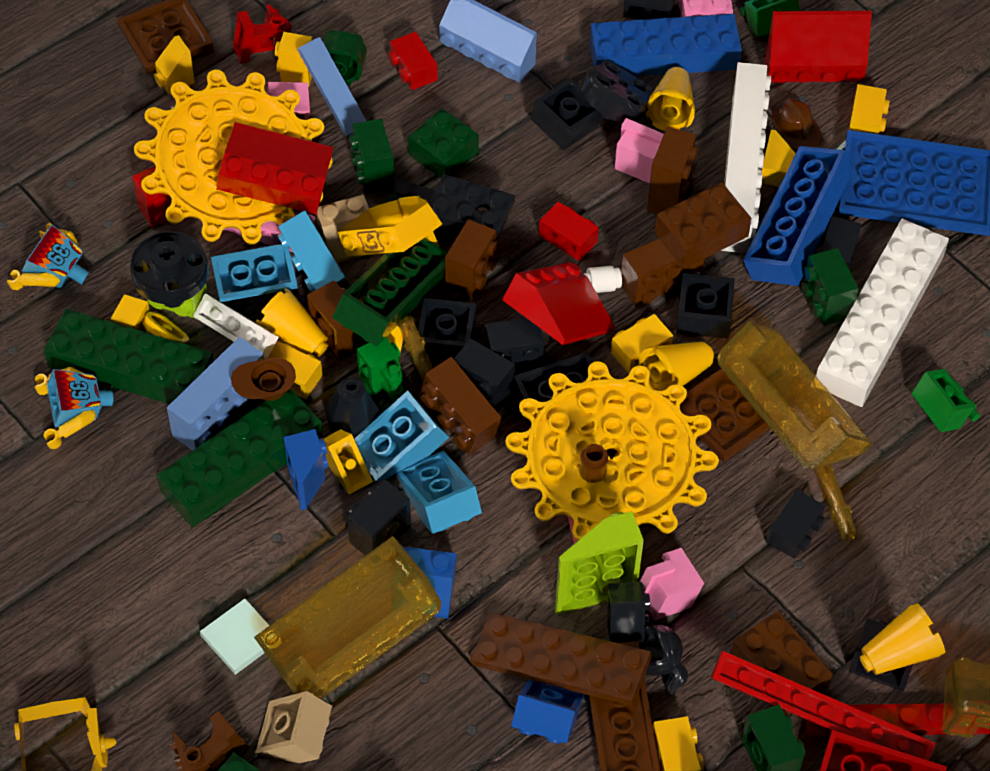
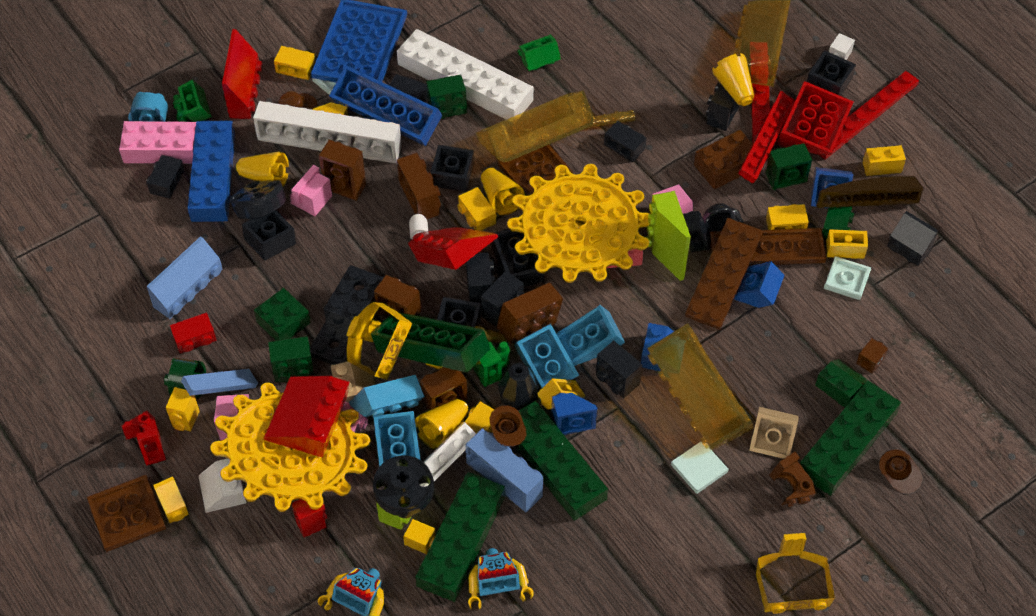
camera: 85 degrees left, 0 degrees up
(161, 326) = (435, 511): yellow plate -> none
(568, 231) = (373, 244): red brick -> none
(593, 463) = (599, 224): reddish brown brick -> none
(702, 225) = (405, 147): reddish brown brick -> none

